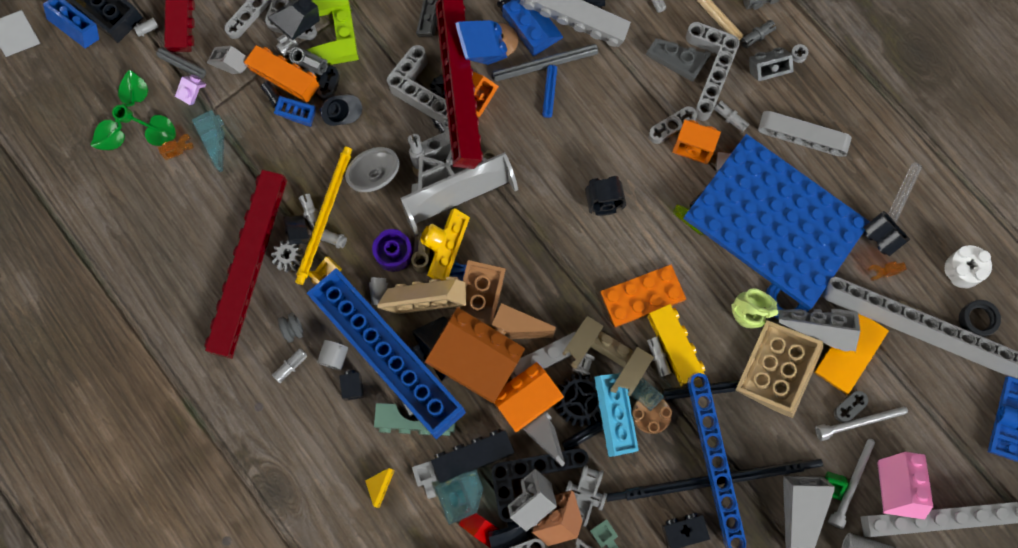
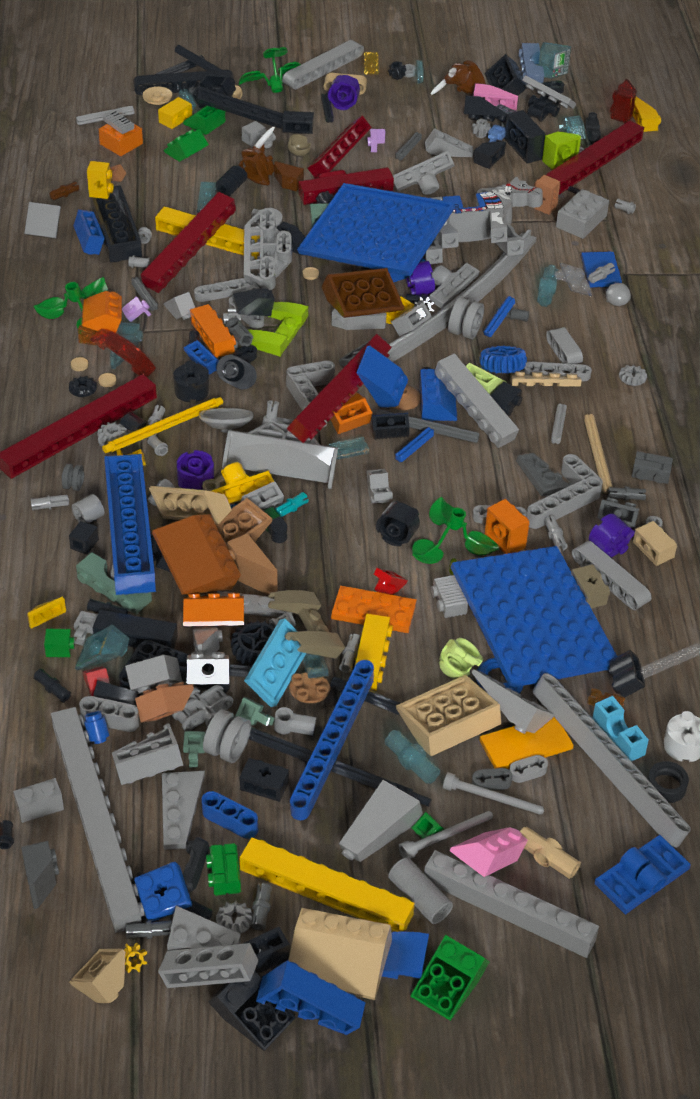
camera: 30 degrees right, 30 degrees down
(167, 119) = (102, 311): none -> orange slope
(187, 186) = (79, 364): none -> tan piece
(216, 219) = (82, 391): none -> black gear
(221, 151) = (124, 349): none -> clear red slope
(227, 189) = (107, 380): none -> tan piece
(309, 138) = (191, 382): none -> black brick
(419, 512) = (58, 643): none -> green brick
(431, 448) = (95, 606): none -> black pin
(474, 244) = (266, 496): none -> light grey brick
(497, 131) = (351, 448): none -> clear light blue tile
(497, 229) = (292, 504): none -> teal axle
(500, 260) = (277, 527): none -> black leg
(520, 87) = (390, 426): none -> black brick
(558, 164) = (378, 486): none -> light grey brick
(575, 469) = (218, 675): none -> brick
(627, 472) = (253, 711): none -> sand green plate
(632, 517) = (227, 736): none -> light grey wheel
(637, 259) = (388, 581): none -> red slope
(669, 459) = (288, 722): none -> light grey piece
(677, 169) = (453, 518): none -> green plant
(695, 244) = (449, 596): none -> light grey brick
(779, 428) = (412, 756): none -> clear light blue piece
(784, 95) = (611, 535): none -> dark purple brick
(794, 148) = (591, 585): none -> dark tan brick
(817, 75) = (654, 543): none -> tan brick
(874, 379) = (527, 767): none -> light grey beam
(929, 301) = (610, 718): none -> medium azure arch
(940, 449) = (550, 853): none -> tan piece

